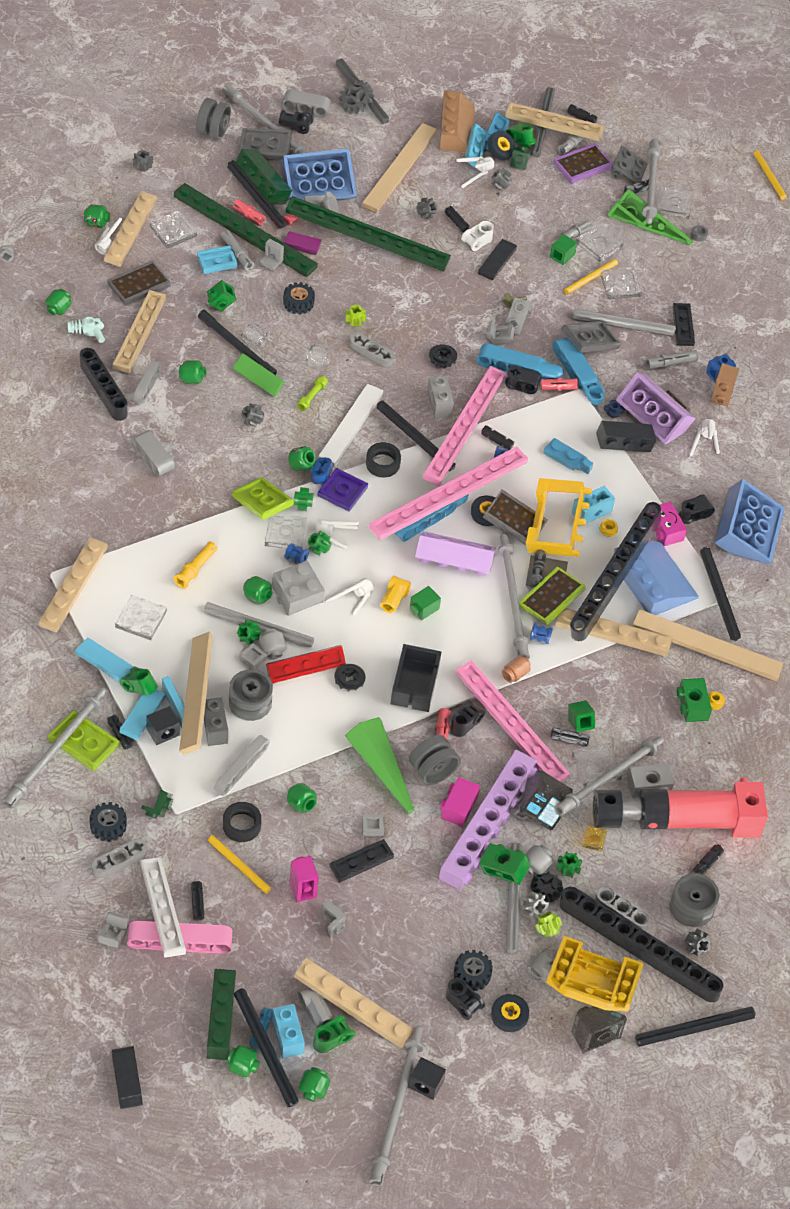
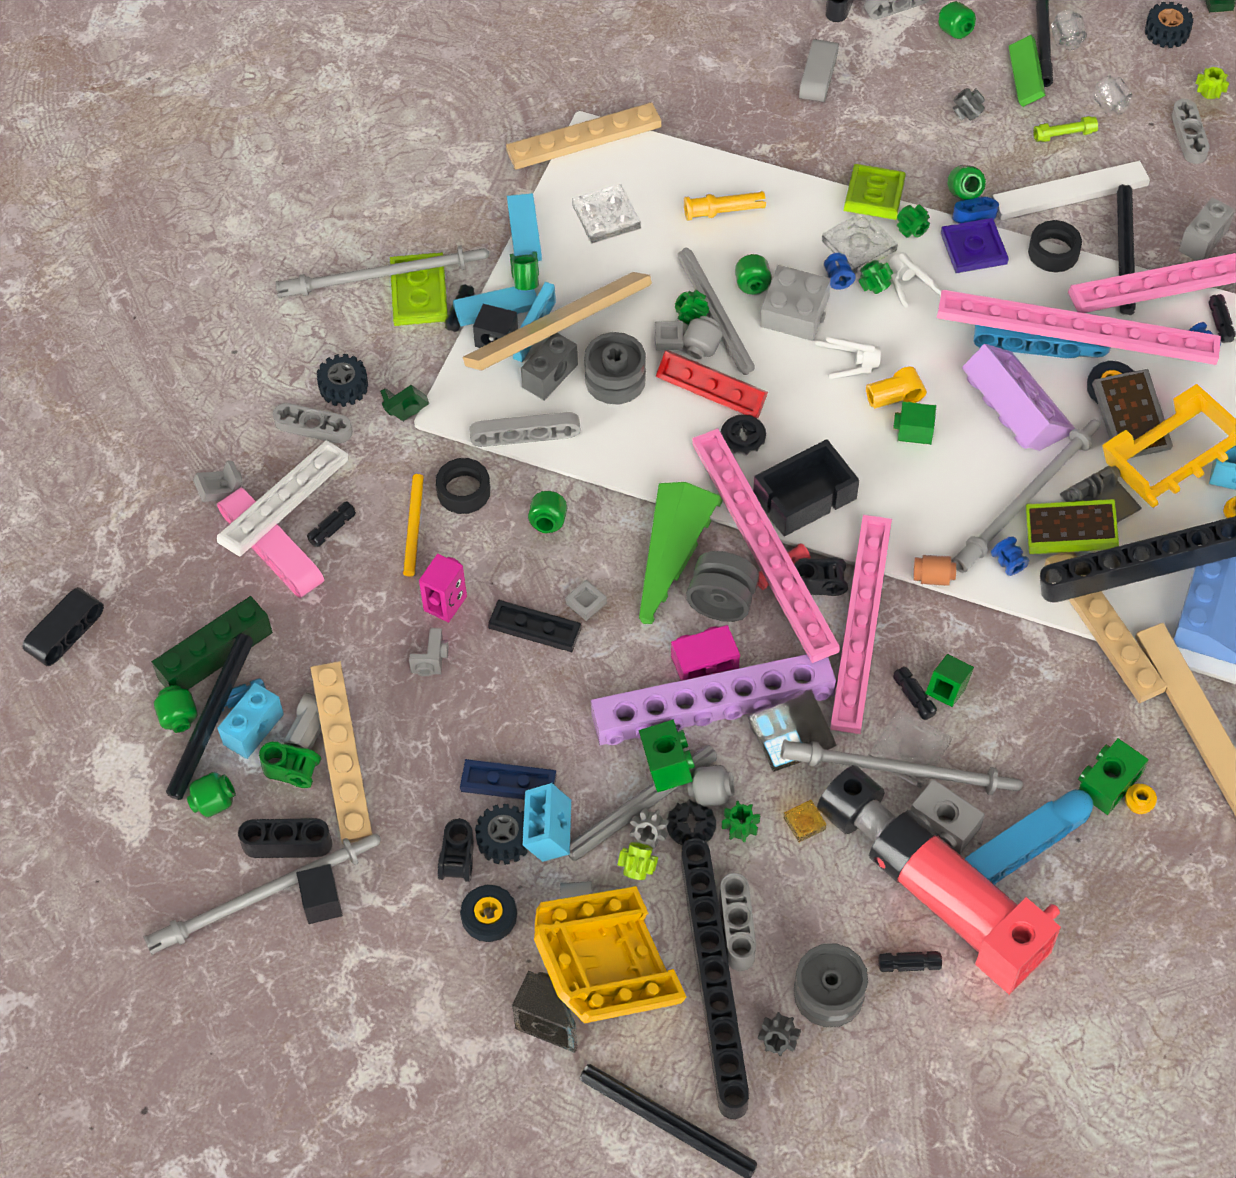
camera: 55 degrees right, 5 degrees up
(378, 1060) = (273, 829): none -> black beam
(428, 721) = (766, 546): none -> bright pink plate
(444, 944) = (503, 779): none -> dark blue plate
(490, 944) = (547, 822): none -> medium azure brick
(693, 754) = (1031, 835): none -> dark azure piece

